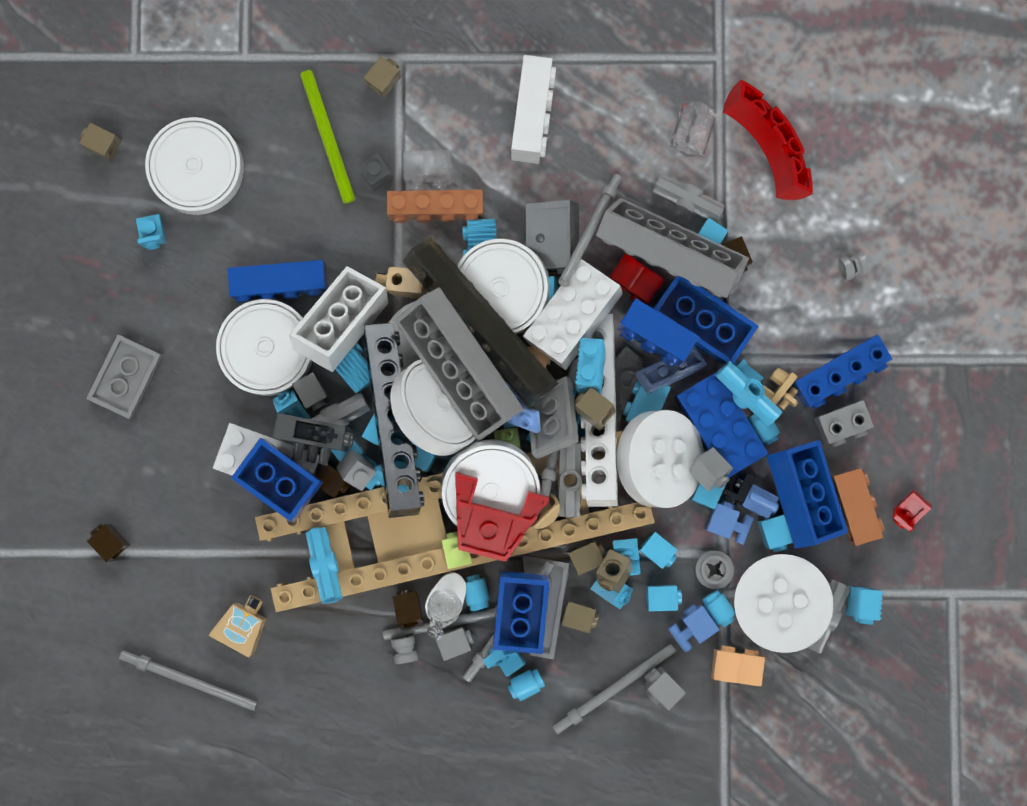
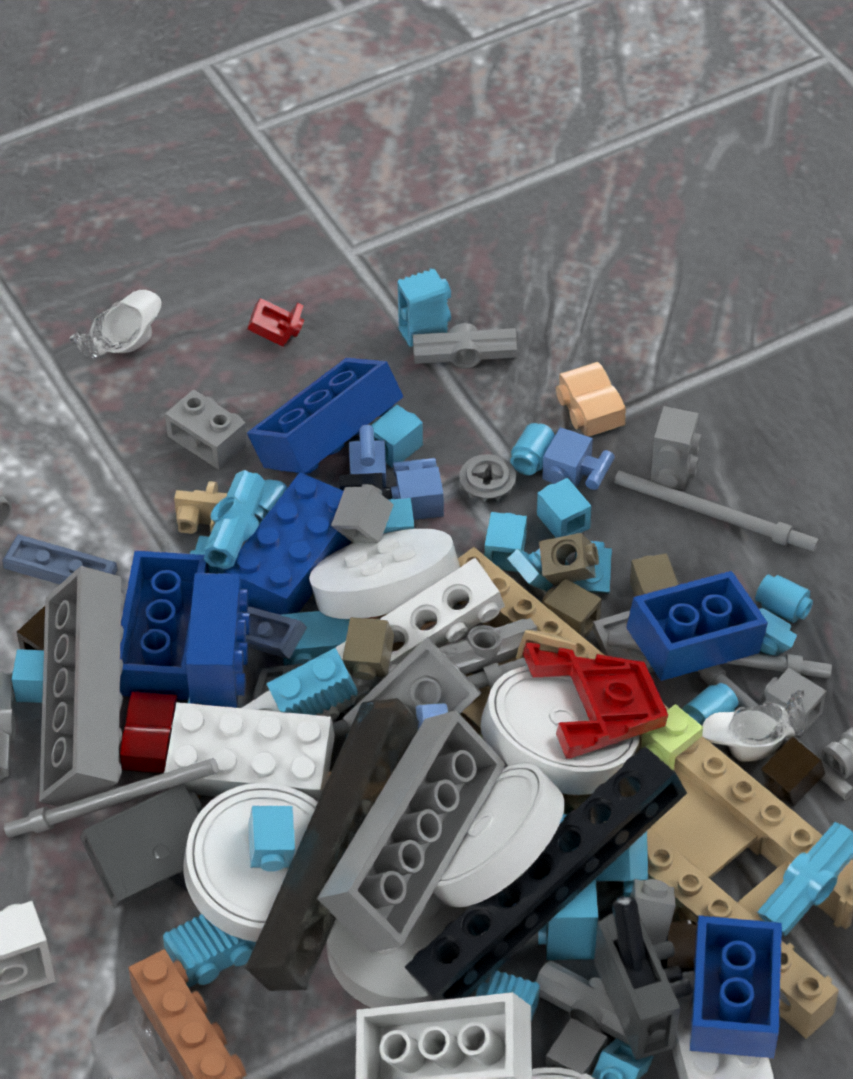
camera: 120 degrees left, 35 degrees down
(401, 283) = (332, 1005): tan torso -> none
(500, 290) = (271, 837): none -> medium azure brick
(784, 603) = (479, 382): white brick -> none
(789, 290) = (50, 560): none -> sand blue tile
(842, 371) = (136, 457): blue brick -> none
(857, 507) = (303, 367): nougat brick -> none
(954, 410) = (121, 327): none -> clear hair

